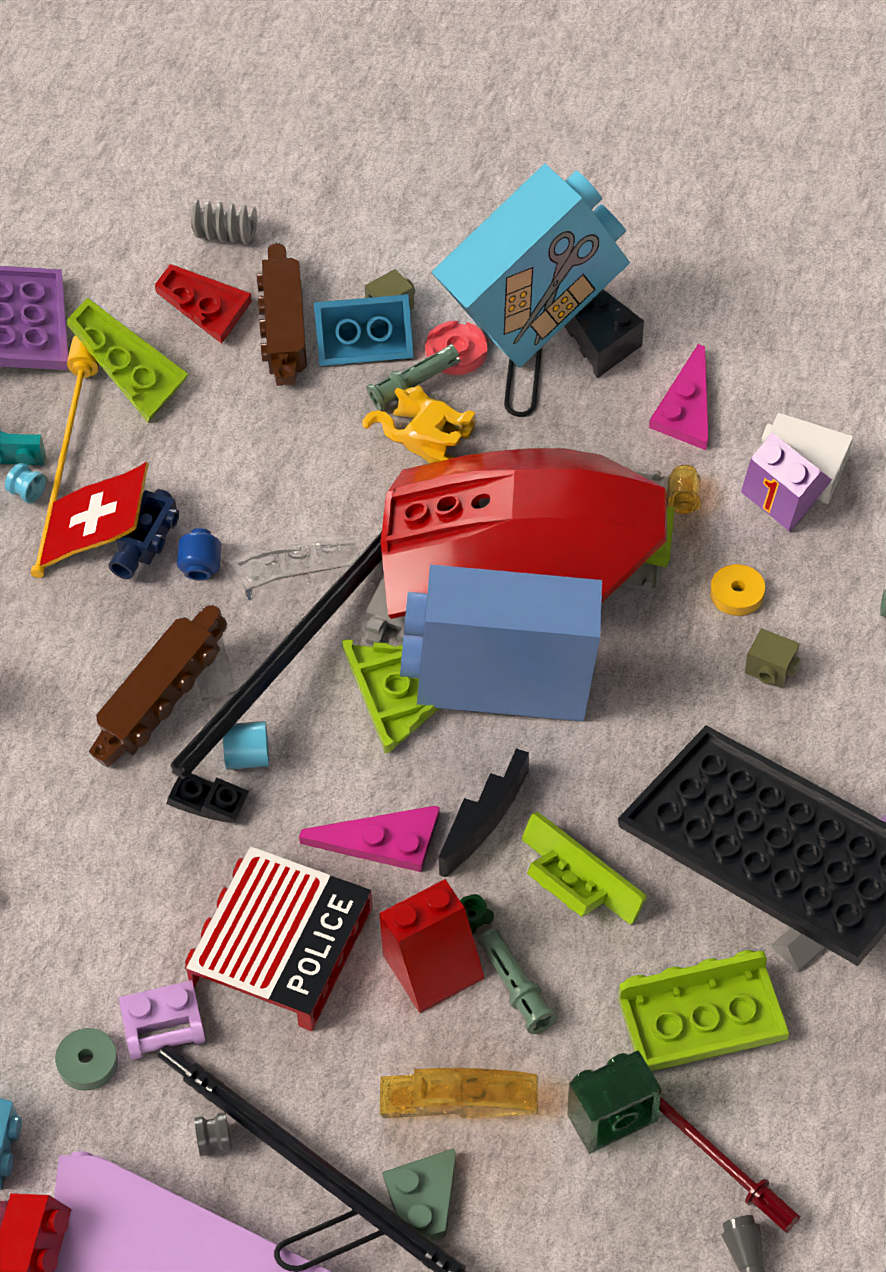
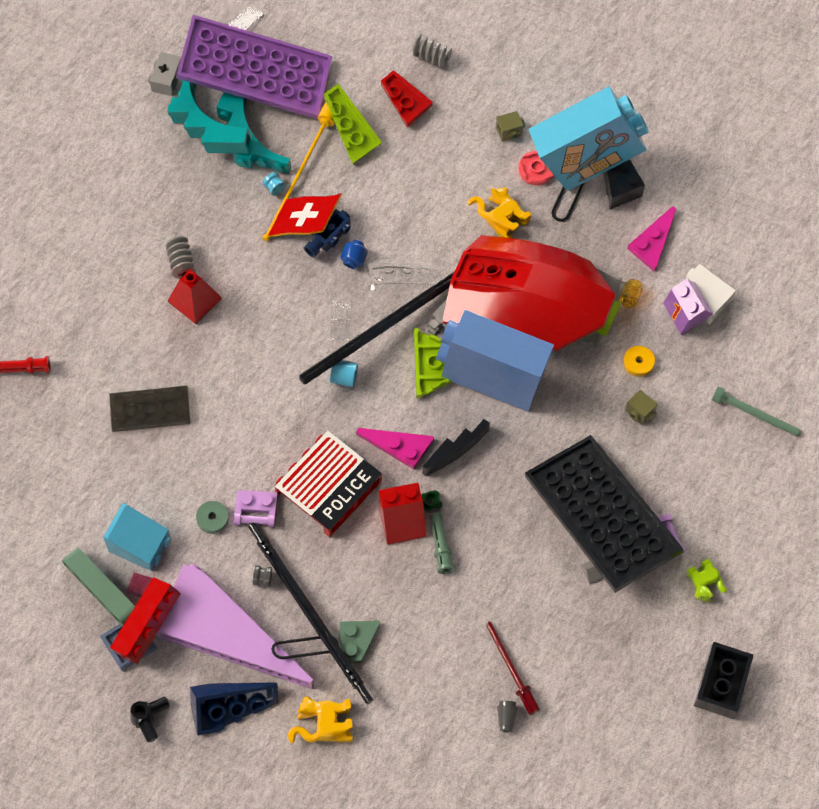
camera: 15 degrees right, 10 degrees up
(157, 684) = (308, 325): reddish brown hinge -> none
(207, 799) = (316, 396): black slope -> none
(283, 316) = (446, 120): reddish brown hinge -> none
(363, 330) = (487, 144): dark azure slope -> none
(420, 372) = (505, 180): sand green pin -> none
(459, 1091) = (391, 593): clear yellow slope -> none
(577, 874) = (491, 496): lime bracket -> none
(613, 1100) = (466, 622): clear green brick -> none
(702, 1010) = (530, 589): lime bracket -> none

